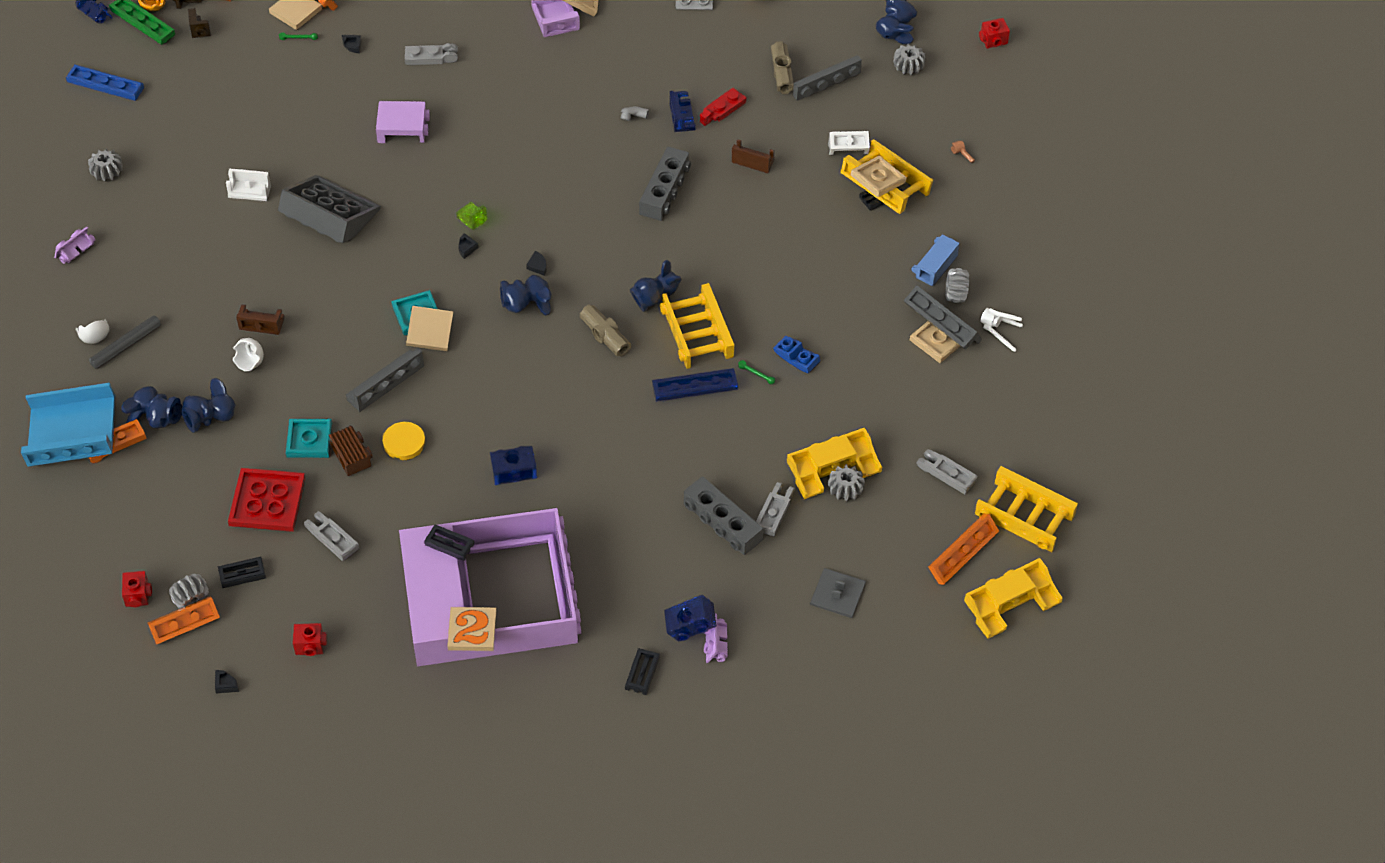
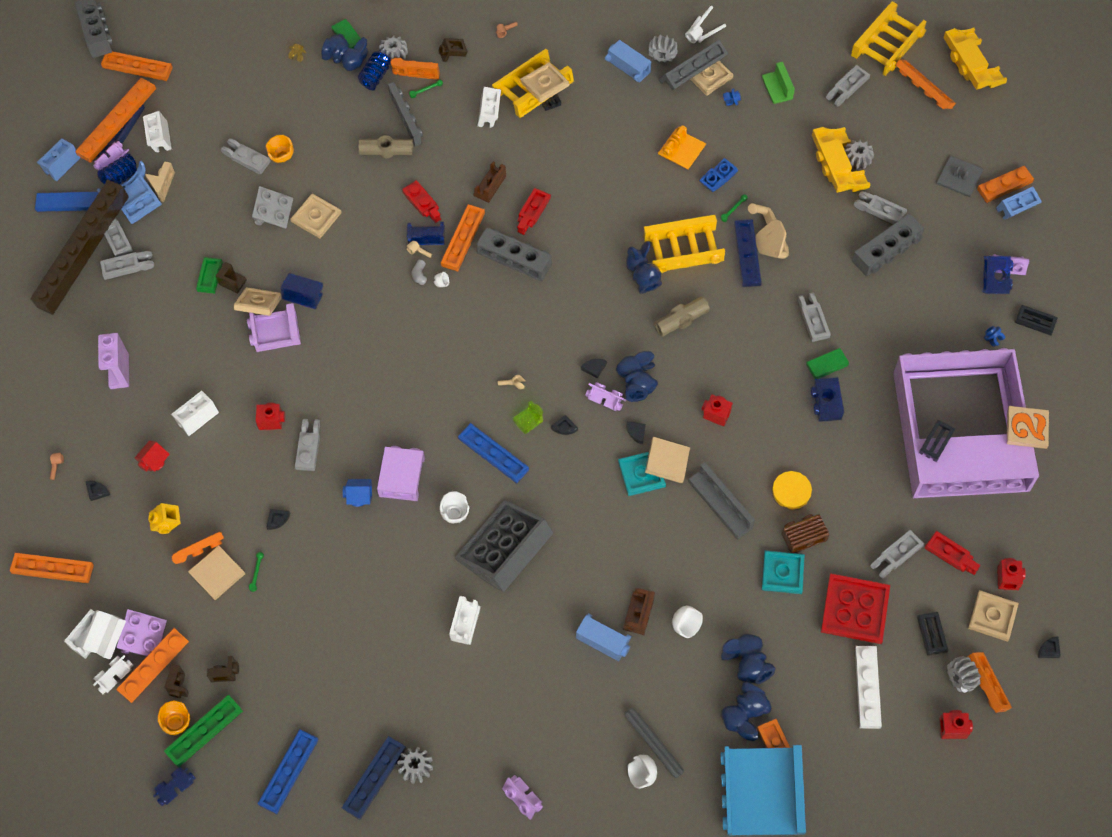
camera: 80 degrees left, 10 degrees up
(94, 138) = (373, 778): none -> dark blue plate
(181, 515) = (868, 687): none -> white plate
(231, 290) = (603, 638): none -> medium blue brick
(263, 628) = (993, 615): none -> tan tile
(333, 585) = (952, 553): none -> red hinge
(365, 163) = (454, 507): none -> white hair
(378, 90) = (358, 492): none -> blue brick
(431, 193) = (493, 453): none -> blue tile
(457, 20) = (269, 416): none -> red brick
(464, 304) = (636, 431): none -> black tile
(492, 367) = (717, 409): none -> red brick
(504, 271) = (613, 398): none -> lavender hinge
(512, 200) = (516, 381): none -> tan hand
(561, 467) = (827, 363): none -> green tile
(600, 25) = (301, 290): none -> clear blue hinge
(614, 621) = (993, 333): none -> blue plate
(618, 449) = (814, 318): none -> light grey hinge
(622, 131) = (441, 280): none -> white hinge
(664, 107) = (413, 246): none -> tan hand
(679, 140) = (462, 237): none -> orange plate
(692, 28) = (316, 216): none -> tan tile
(723, 194) = (532, 210): none -> red hinge
(724, 413) = (771, 238): none -> tan piece
(800, 646) = (1019, 202): none -> medium blue hinge
(828, 318) = (682, 148): none -> light orange hinge
(833, 639) = (1005, 184): none -> orange plate
(859, 85) = (413, 93): none -> green hinge
(876, 46) = (374, 70): none -> clear blue piece
(889, 79) = (415, 69): none -> orange hinge
(906, 359) = (732, 97): none -> blue plate
(922, 107) = (452, 47): none -> dark brown bracket
(925, 23) = (347, 30): none -> green tile
(936, 404) = (779, 84): none -> bright green panel

